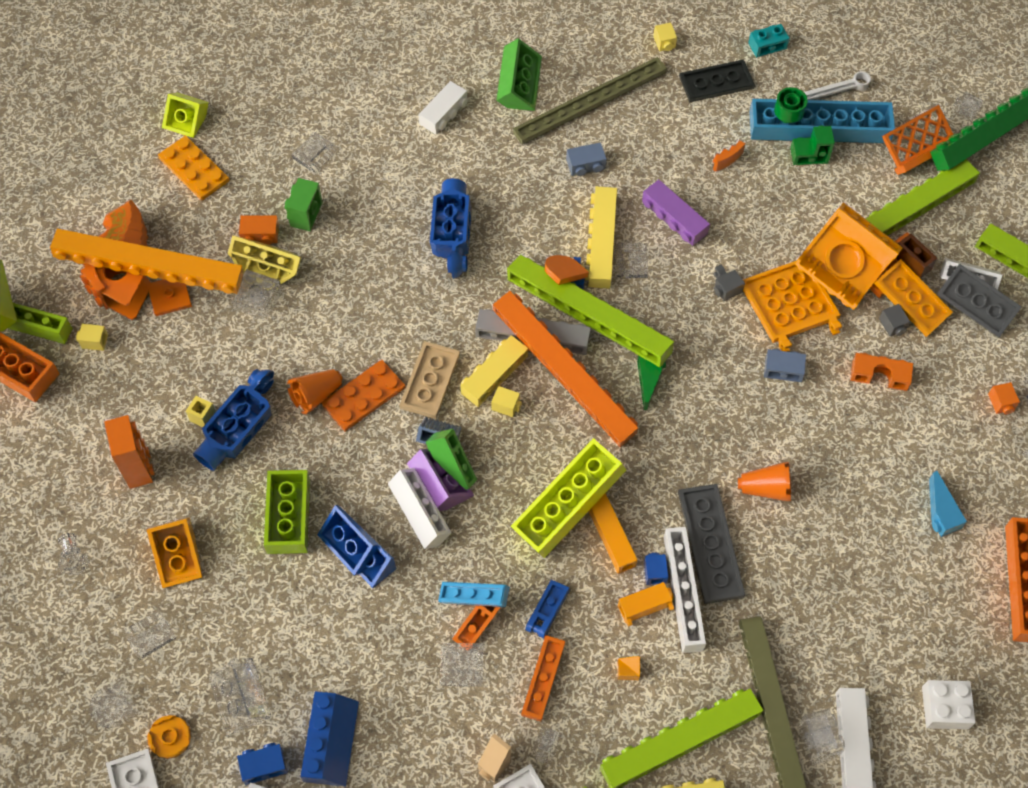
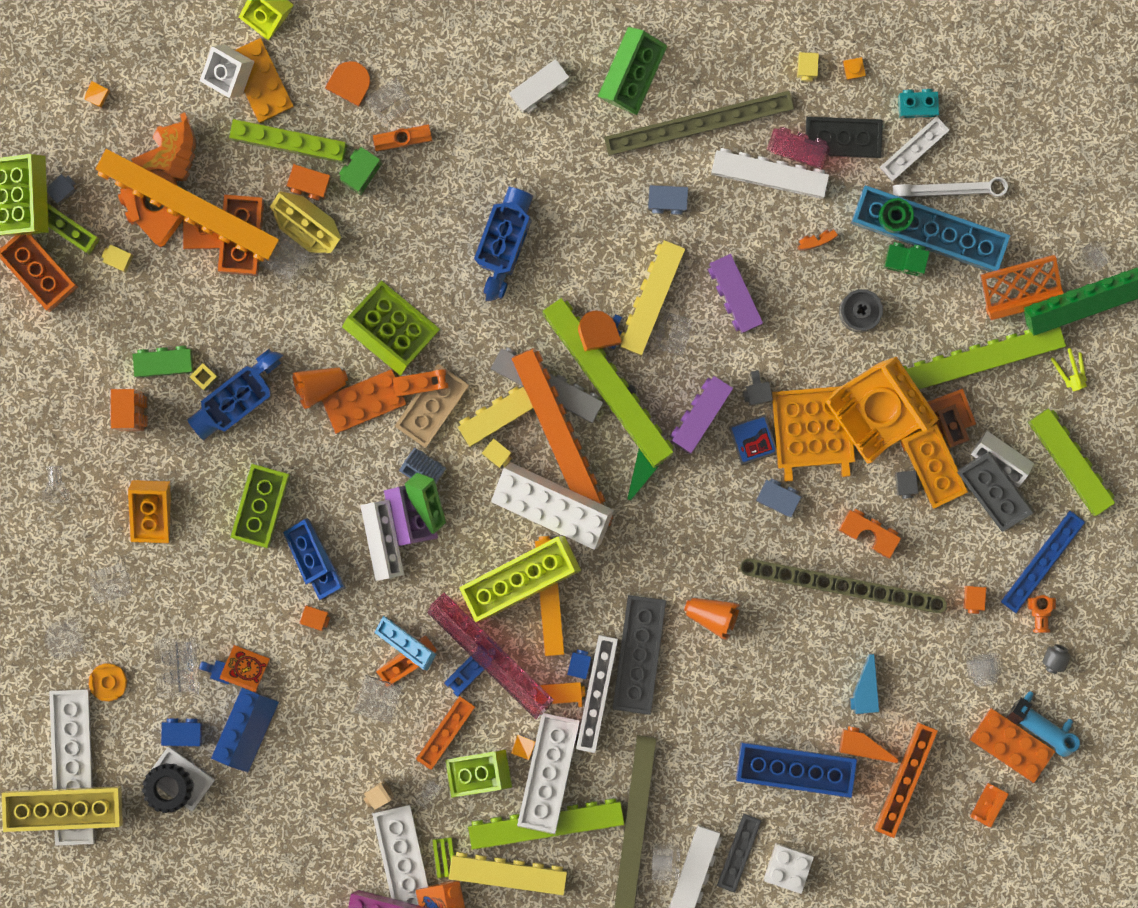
camera: 15 degrees right, 25 degrees up
(26, 294) = (61, 189): none -> sand blue brick
(45, 214) = (96, 94): none -> light orange slope
(158, 412) = (163, 362): none -> bright green brick
(160, 159) = (227, 71): none -> white brick
(206, 304) = (230, 258): none -> orange brick
(230, 202) = (288, 141): none -> lime brick
(274, 149) = (349, 82): none -> orange tile
(288, 688) = (216, 670): none -> blue plate
(312, 674) = (244, 668): none -> orange tile
(340, 172) = (389, 140): none -> orange piece
(369, 326) = (390, 327): none -> lime slope
(372, 603) = (315, 618): none -> orange brick
(412, 360) = (419, 383): none -> orange plate
(565, 581) = (490, 656): none -> clear pink brick
(576, 424) = (552, 506): none -> white brick
(592, 708) = (478, 773): none -> lime slope
(665, 684) = (548, 773): none -> white plate
(666, 119) = (770, 174): none -> white brick
(683, 92) = (798, 147): none -> clear pink brick
(685, 310) = (702, 414): none -> medium lavender brick
(703, 32) = (854, 68): none -> light orange plate
(740, 325) = (753, 440): none -> slope
(779, 72) = (914, 148): none -> white plate
(790, 196) = (868, 302): none -> dark grey wheel
(885, 418) = (851, 589): none -> olive beam
(890, 708) = (739, 853): none -> dark grey tile
(911, 602) = (796, 769): none -> blue brick
(965, 561) = (859, 744): none -> orange slope
(1001, 201) = (1077, 380): none -> neon yellow plant

